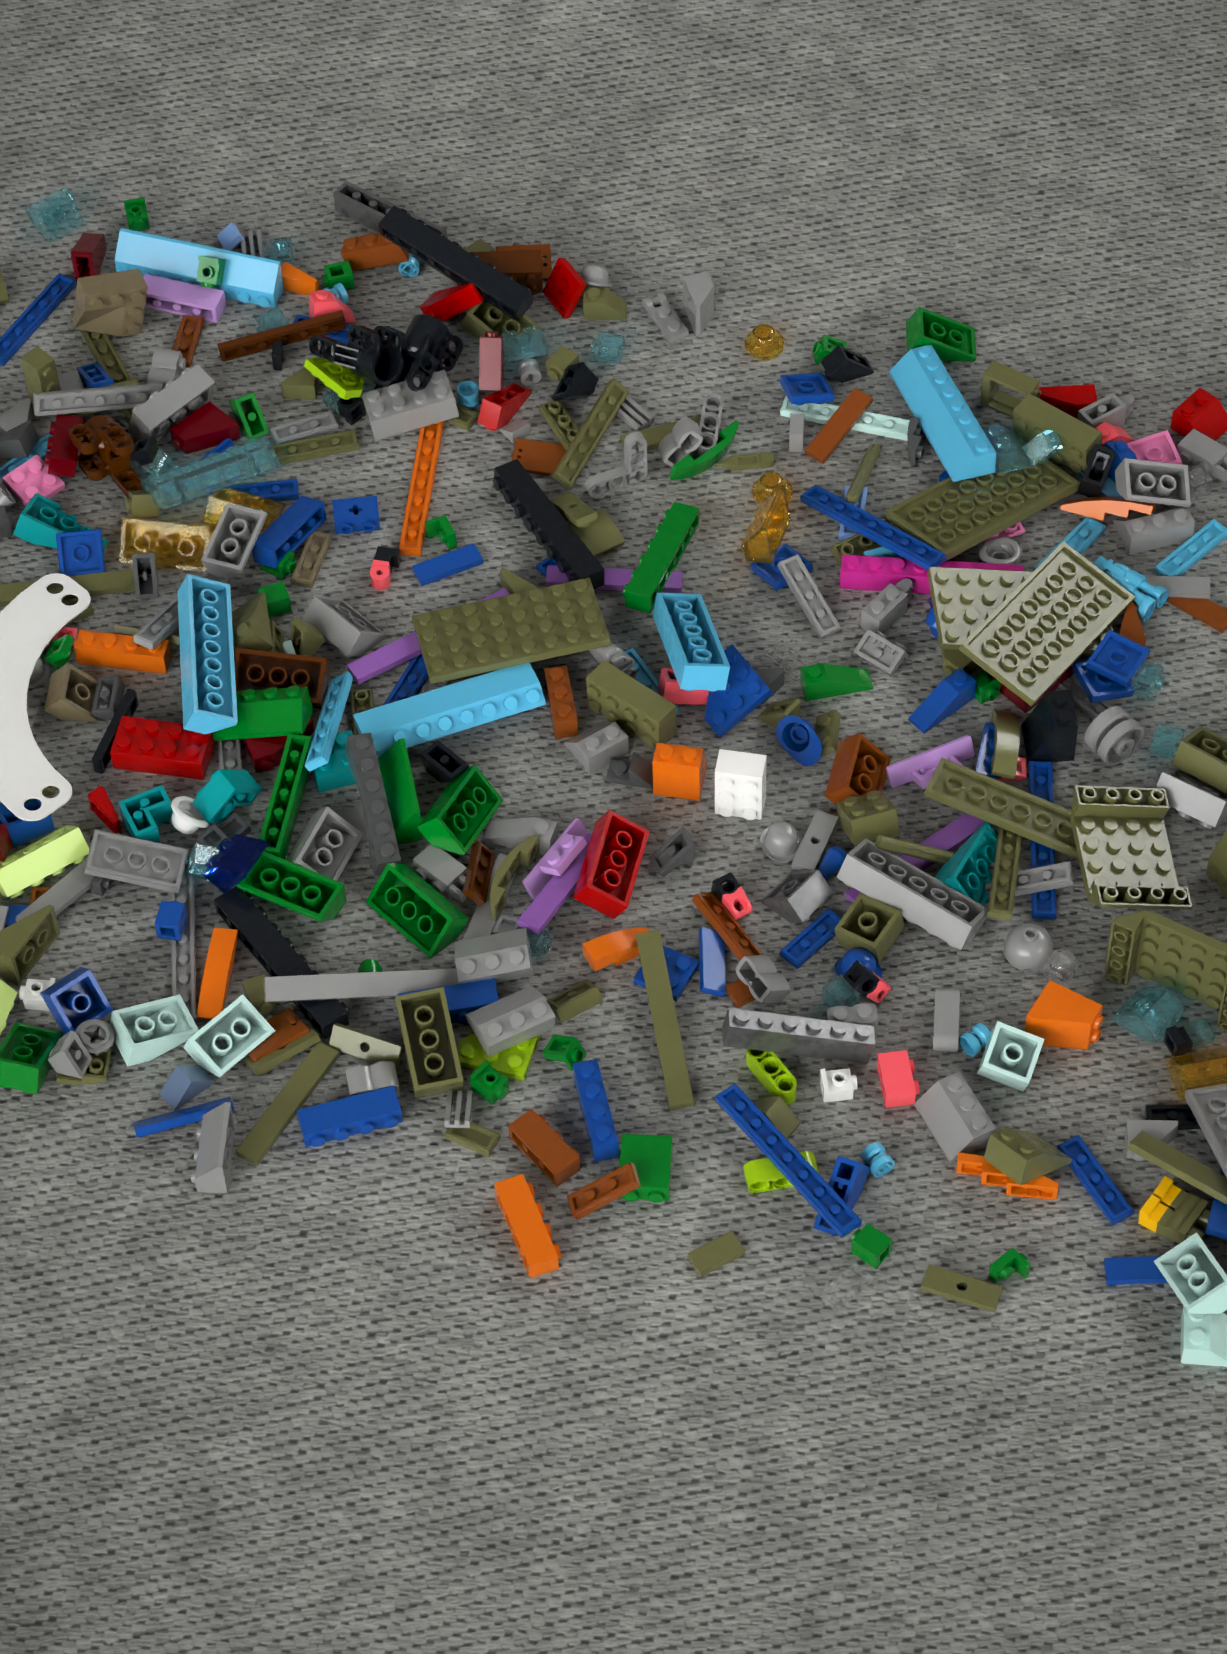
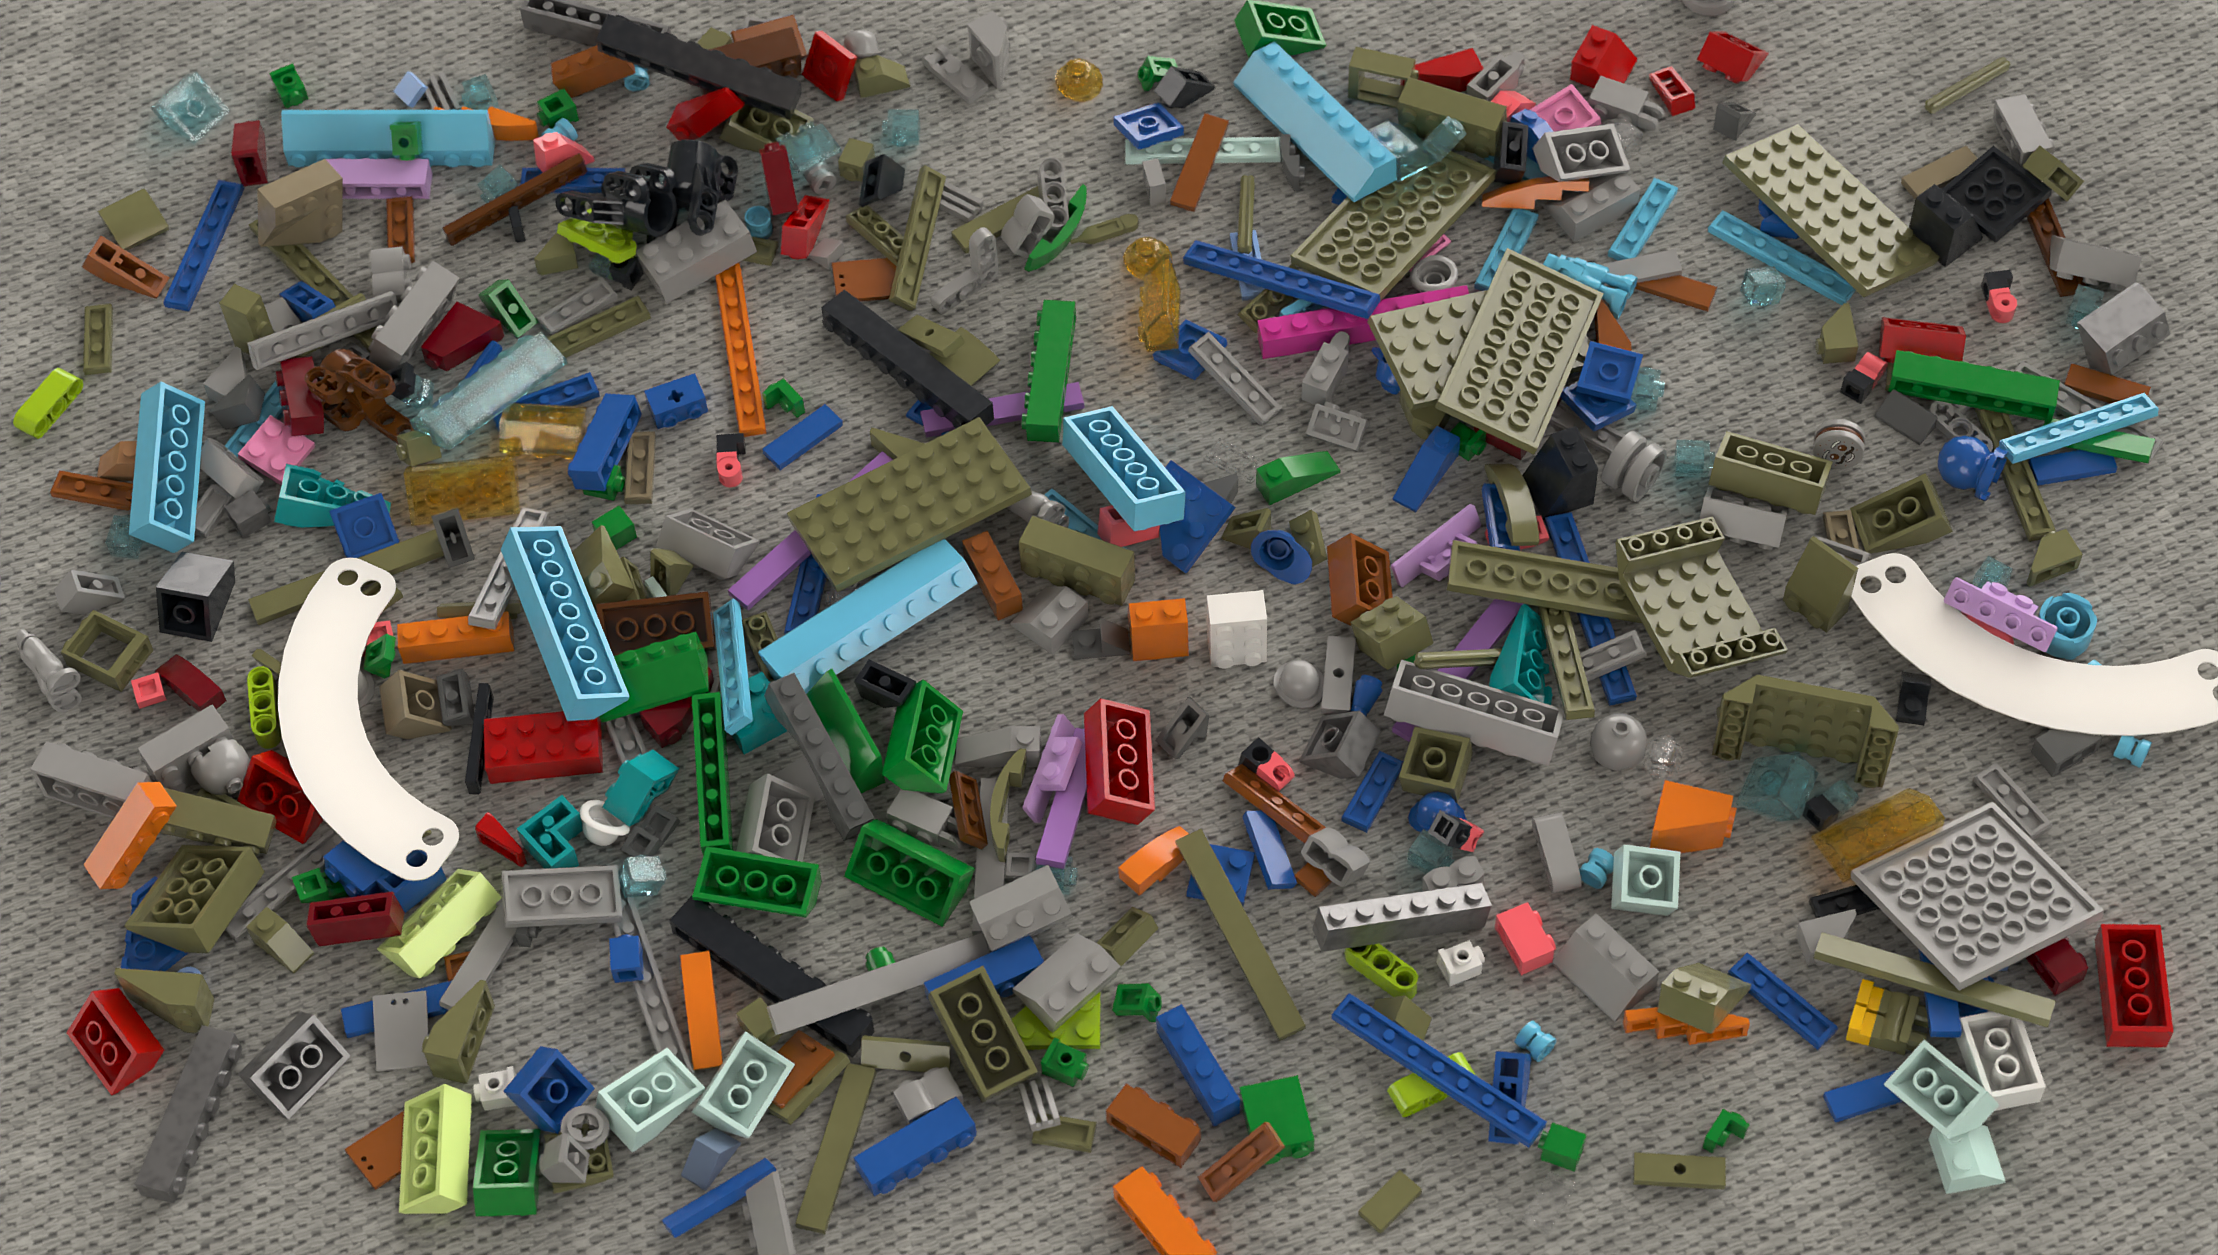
camera: 15 degrees left, 5 degrees up
(233, 540) = (547, 470): light grey slope -> none
(233, 861) = (680, 868): clear blue slope -> none

